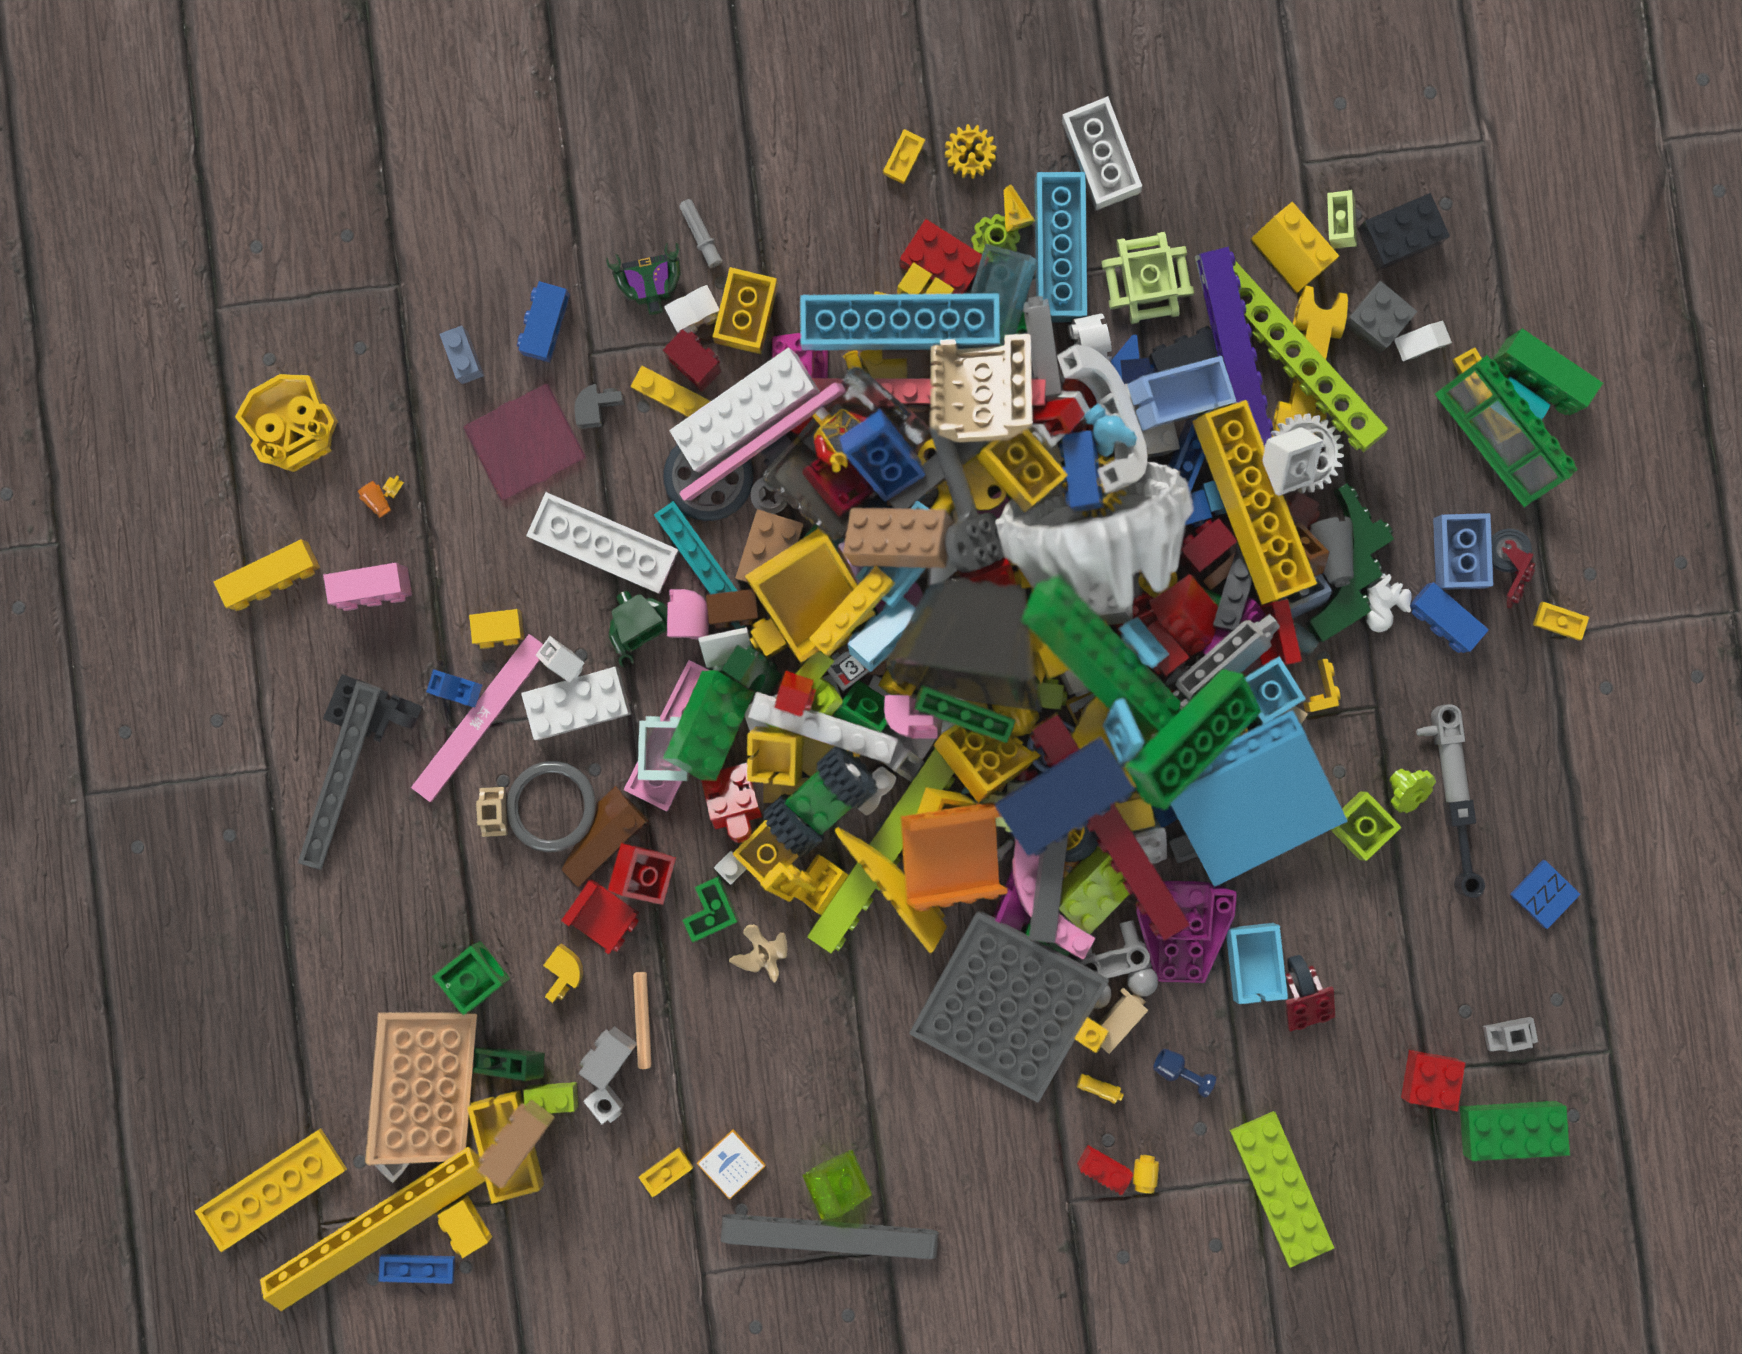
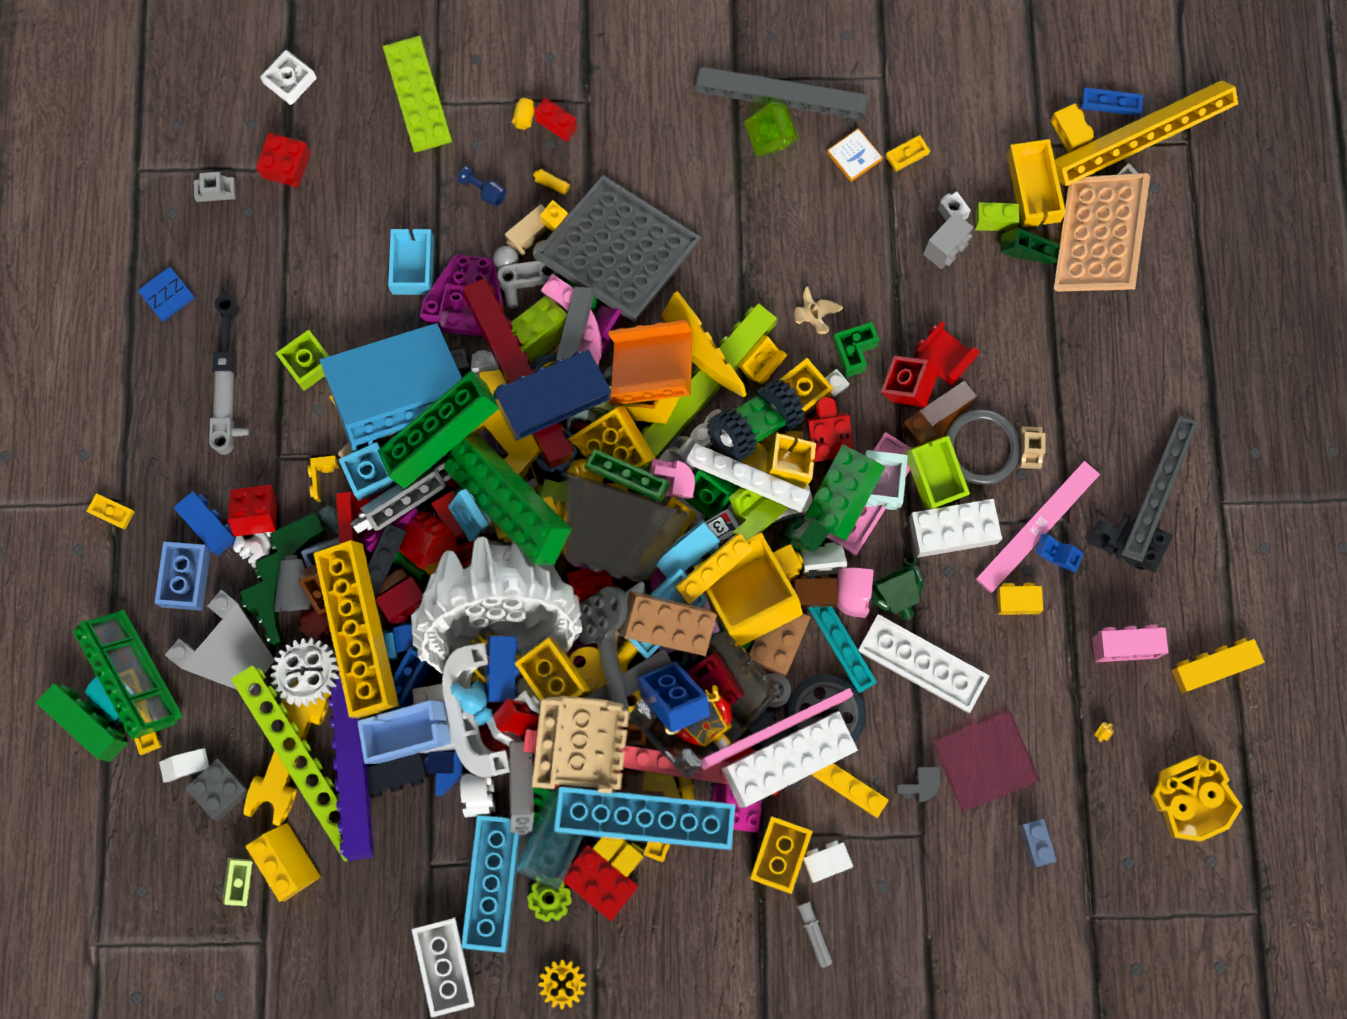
camera: 170 degrees left, 10 degrees down
(270, 1190) = (1227, 171): yellow plate -> none
(374, 498) = (1121, 723): orange cone -> none
(471, 977) = (1056, 312): green brick -> none
(514, 1142) = (1027, 177): medium nougat brick -> none
(543, 321) = (962, 866): blue brick -> none
(560, 659) = (967, 564): white brick -> none
(567, 967) = (977, 316): yellow brick -> none
(602, 764) = (937, 472): none -> lime piece
(642, 1020) = (918, 270): light nougat axle -> none
(648, 278) = (865, 895): dark green torso -> none
(692, 359) = (831, 814): dark red brick -> none
(787, 881) = (790, 360): yellow bracket -> none
(795, 694) = (769, 504): red brick -> none
(904, 156) = (623, 986): yellow plate -> none
(1016, 213) = (527, 922): yellow tile -> none
(1122, 733) = (497, 437): medium azure plate -> none
(1148, 277) = (417, 848): yellowish green brick -> none
(1292, 459) = (318, 660): white slope -> none
(1309, 1001) = (373, 222): dark red plate -> none
(1393, 473) = (227, 649): none -> light grey wedge
(1396, 635) = (252, 510): none -> red brick
(1403, 232) = (183, 865): black brick -> none
(1410, 789) = (262, 386): lime plant -> none
(1450, 1206) = (288, 65): none -> white brick
(1513, 554) = (141, 571): plate -> none
(1514, 1130) = (225, 116): green brick -> none

